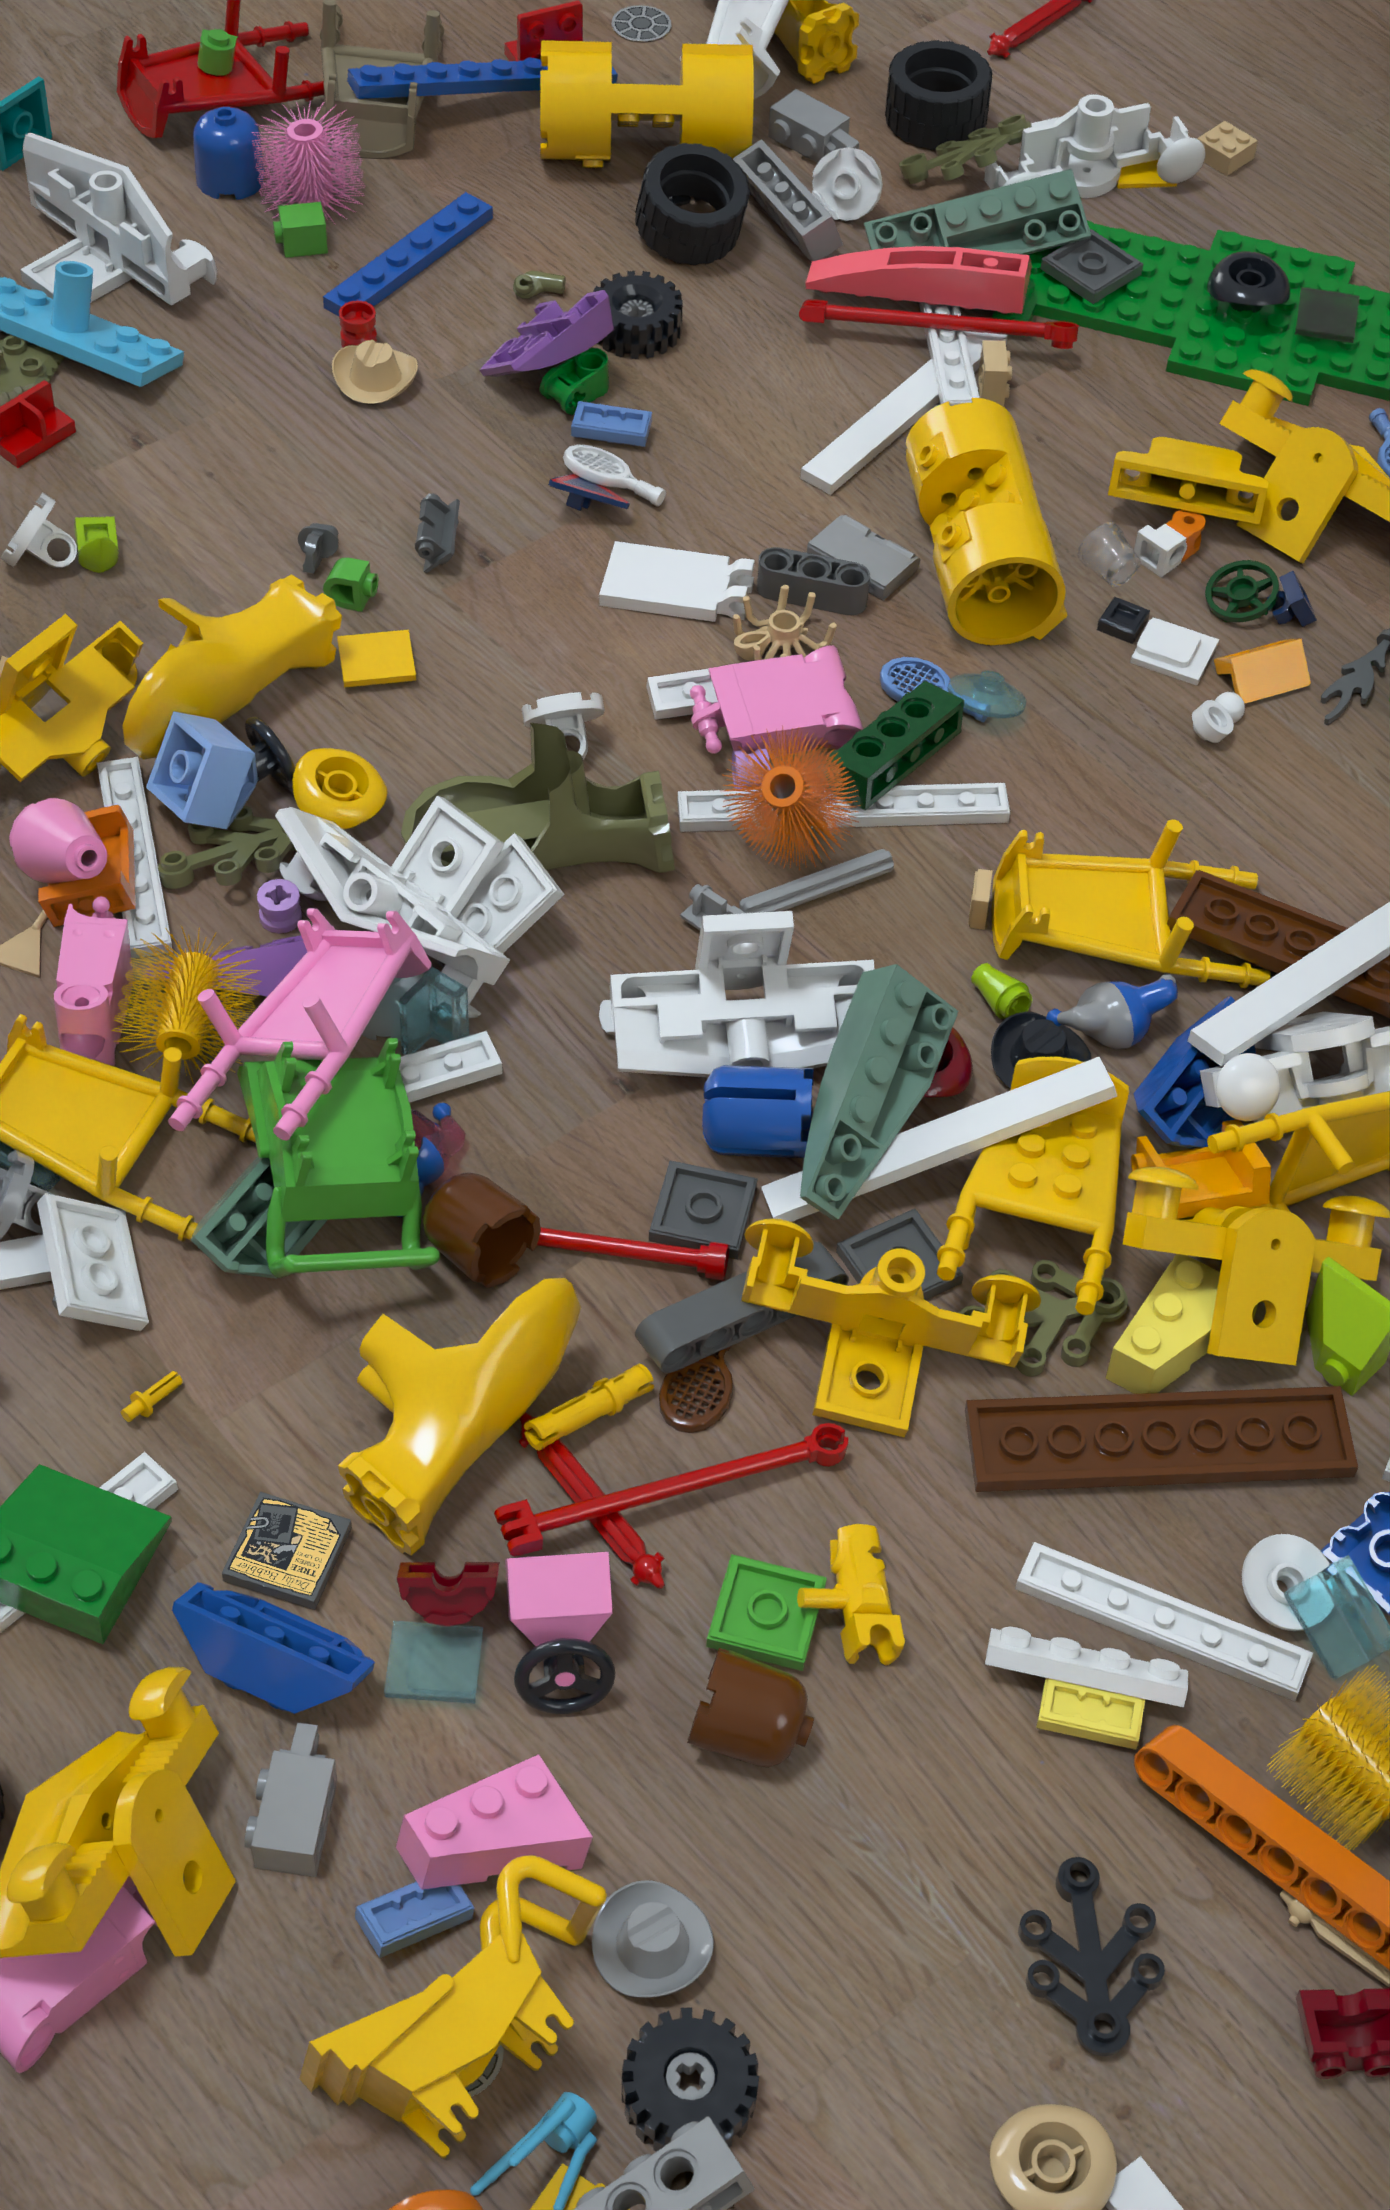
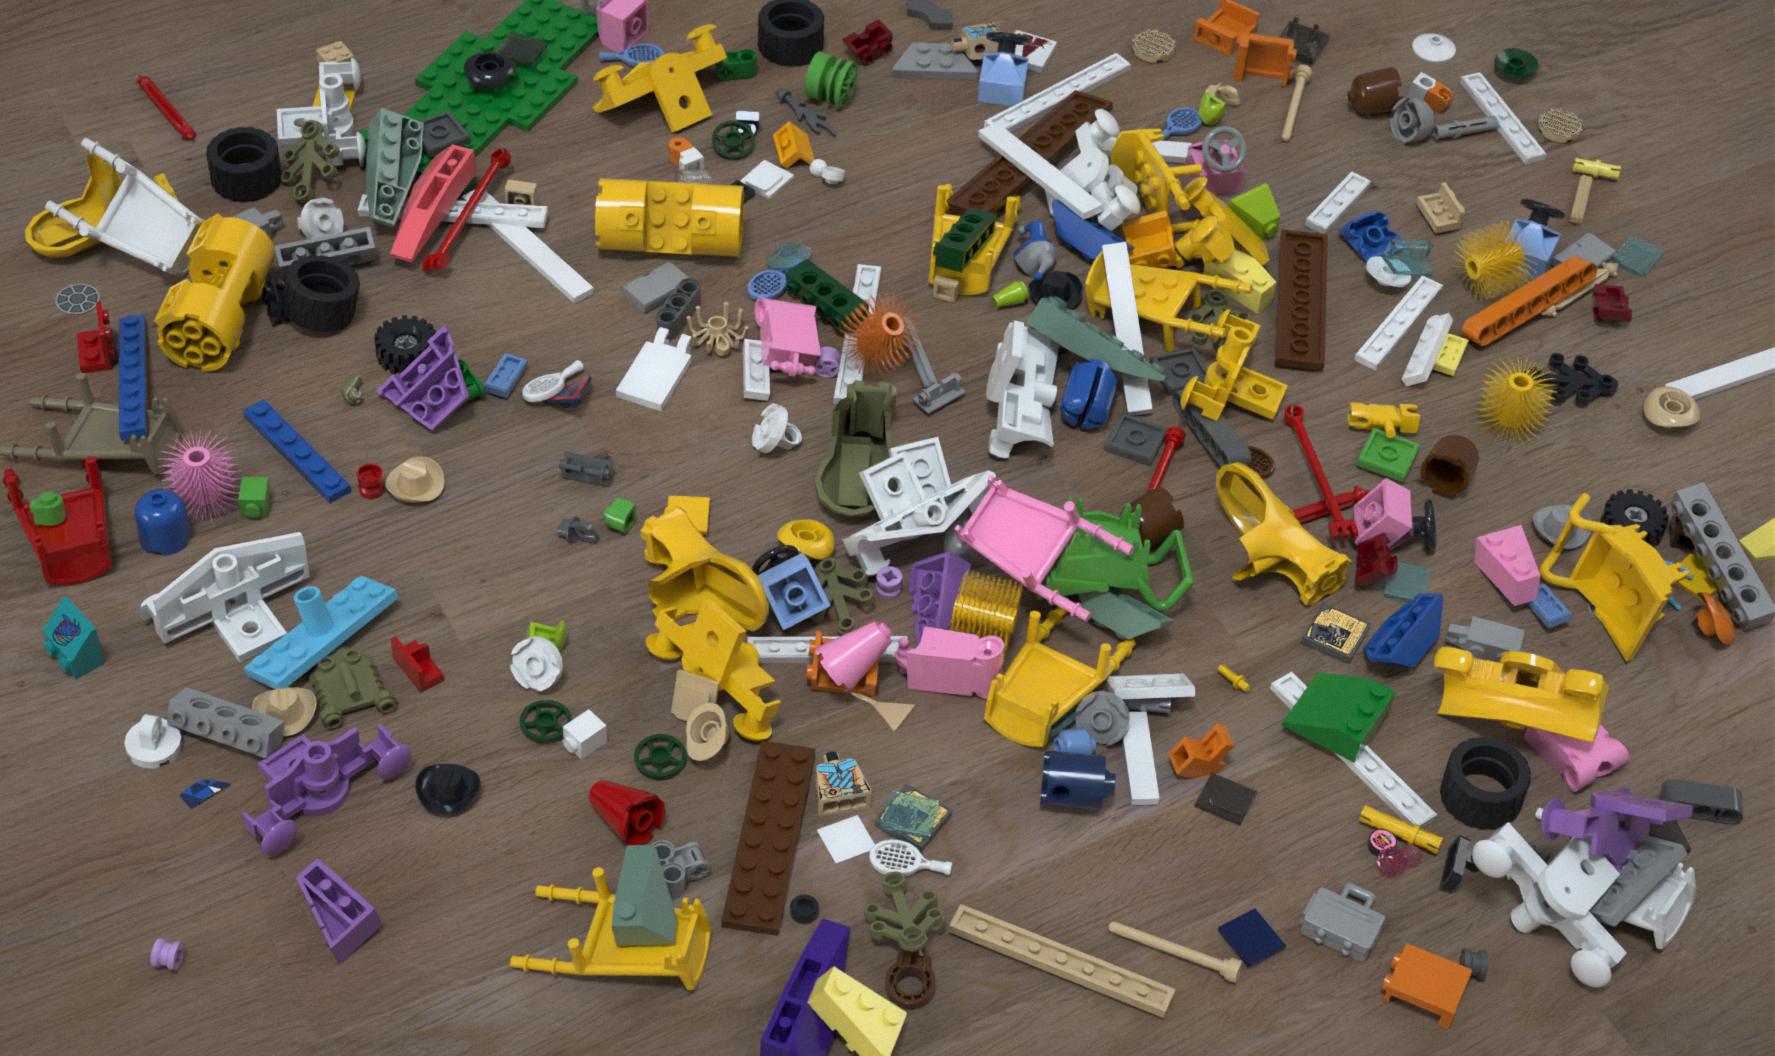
camera: 80 degrees left, 5 degrees down
(955, 1820) = (1515, 399): none -> yellow piece
(1066, 881) = (965, 239): none -> dark green brick
(1190, 479) = (648, 132): yellow brick -> none

